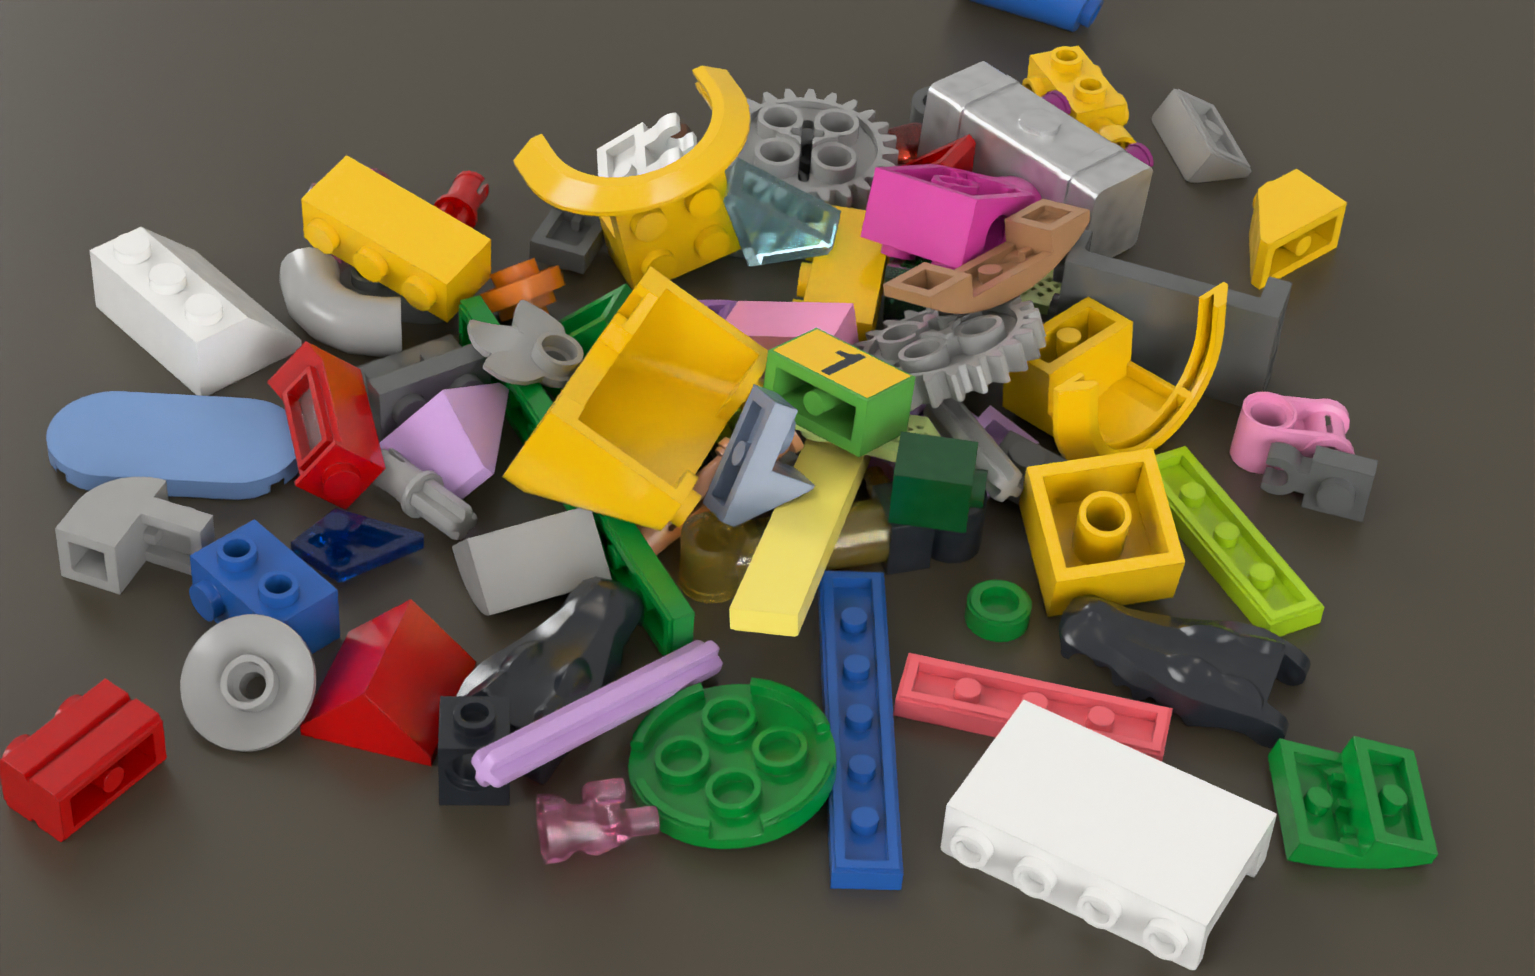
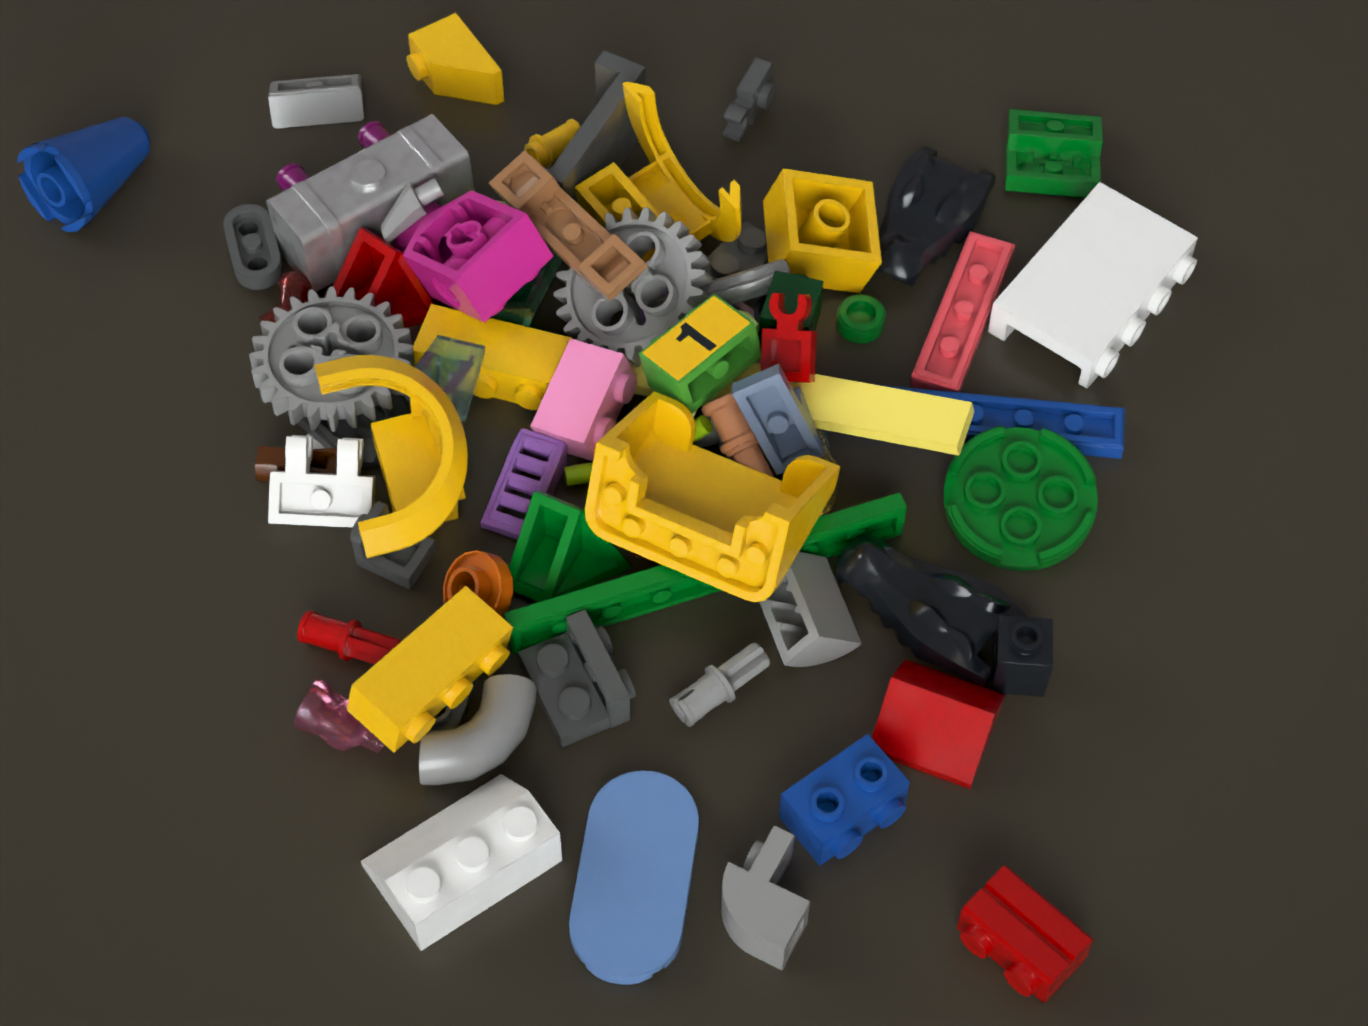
camera: 80 degrees left, 15 degrees up
(223, 665) = (963, 808): light grey dish -> none
(329, 425) = (652, 741): red window -> none
(352, 544) = (772, 739): clear blue piece -> none
(455, 435) = (661, 655): lavender slope -> none
(529, 350) = (587, 577): light grey plate -> none
(593, 824) = (1085, 591): clear pink piece -> none
(595, 714) = (1001, 567): lavender axle -> none
(862, 460) = (789, 343): none -> red plate
(1006, 162) = (410, 208): none -> light grey bar
(1087, 90) = (249, 166): yellow brick -> none
(1234, 548) = (847, 156): lime tile -> none
(1287, 420) = (699, 110): bright pink piece -> none

